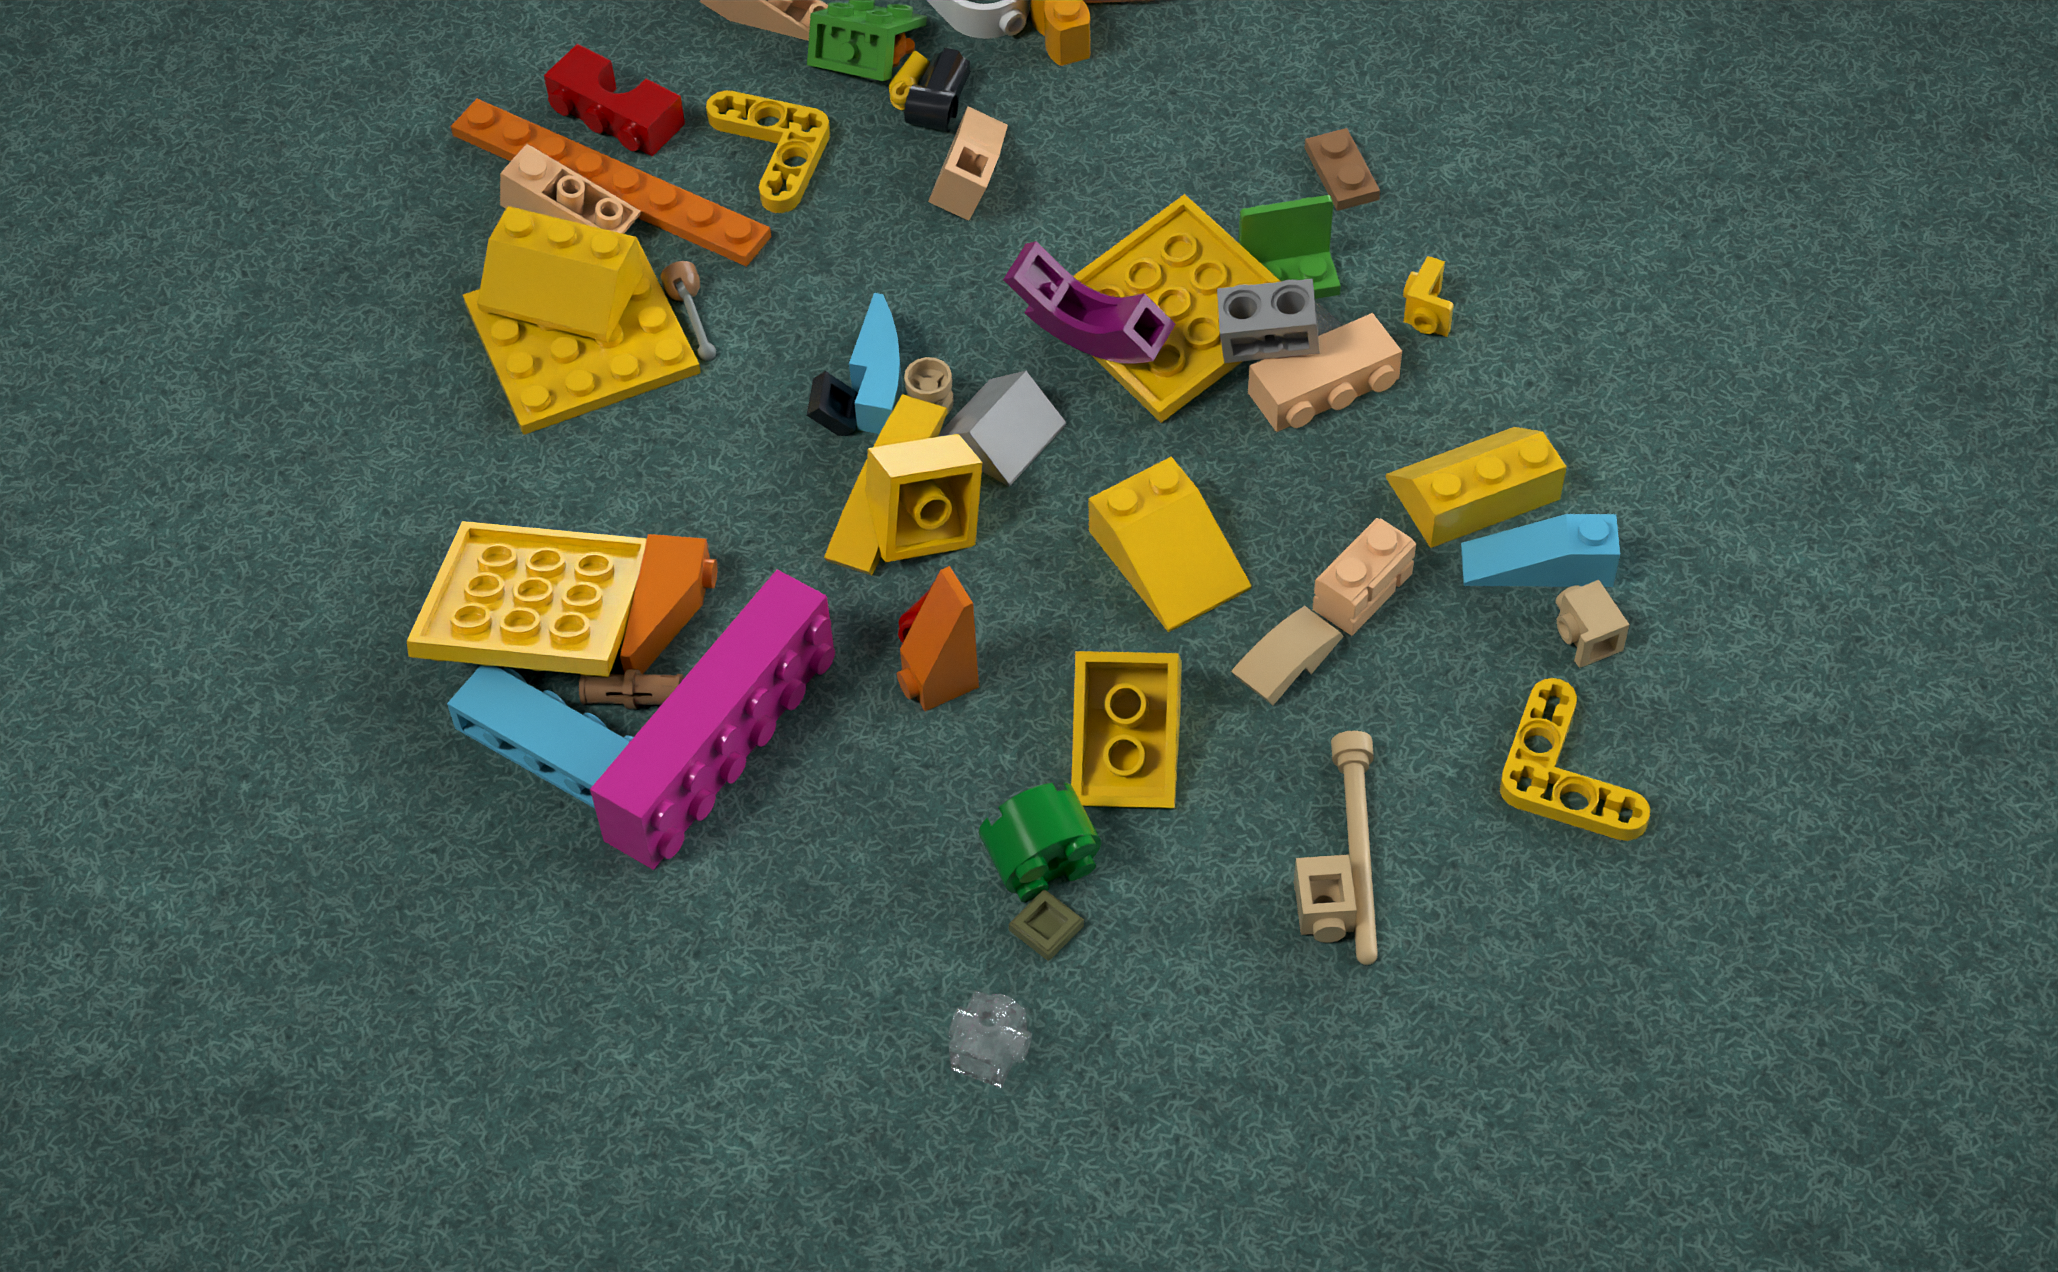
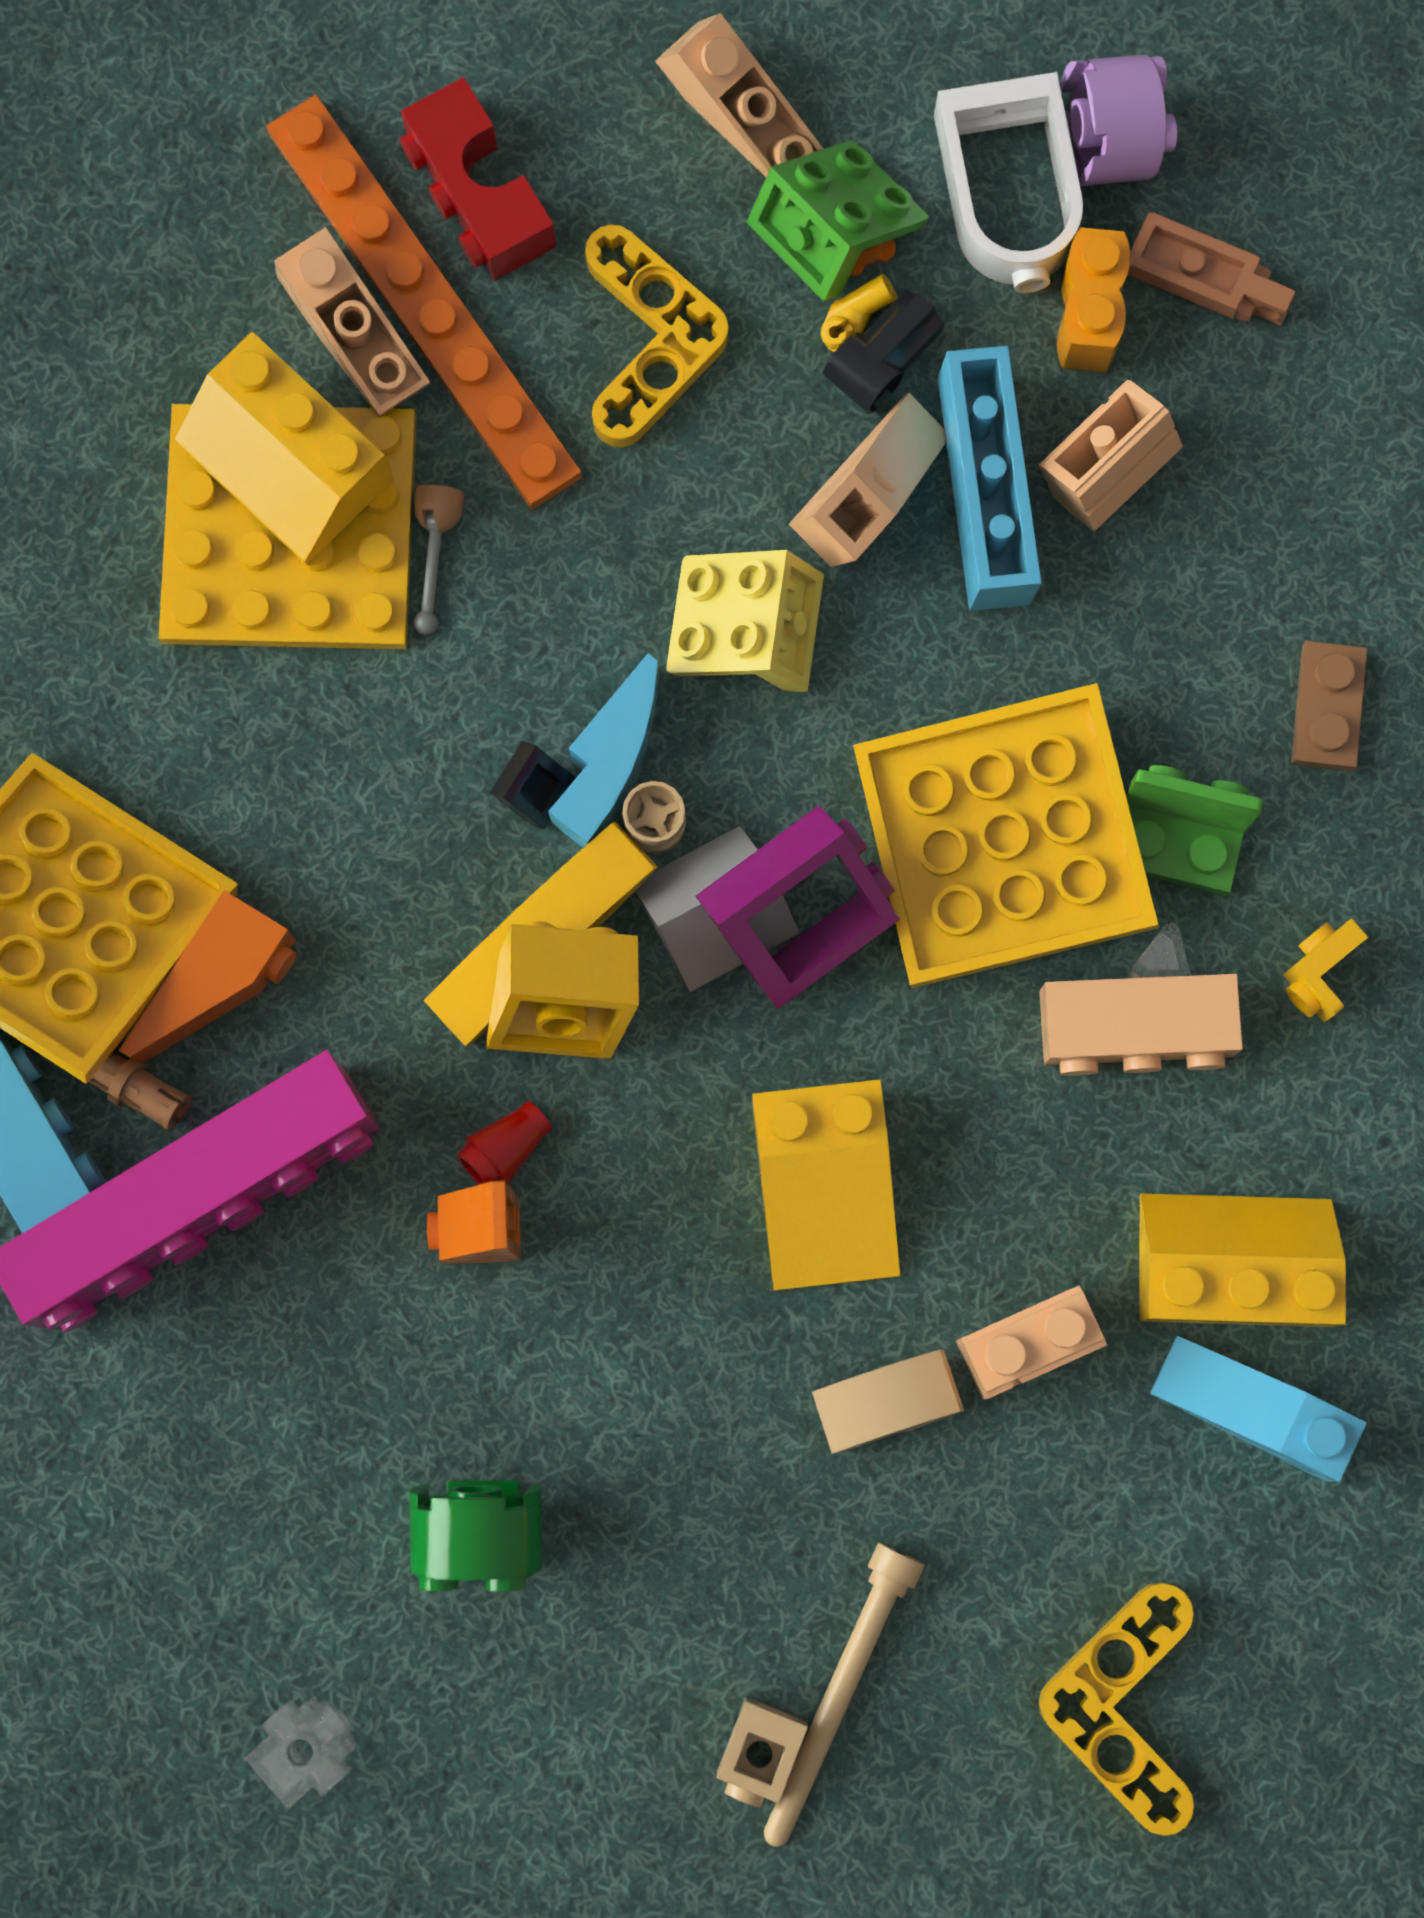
camera: 25 degrees right, 25 degrees up
(926, 257) = (746, 617): none -> light yellow bracket
(1030, 414) = (775, 871): none -> magenta window
(1046, 925) = (443, 1621): olive tile -> none
(1048, 125) = (988, 478): none -> medium azure brick
(1097, 324) = (885, 818): magenta arch -> none
(1120, 84) = (1111, 455): none -> light nougat brick
(1126, 728) = (652, 1414): yellow slope -> none
(1268, 320) = (1086, 956): light grey brick -> none
(1591, 622) = (1262, 1532): tan brick -> none

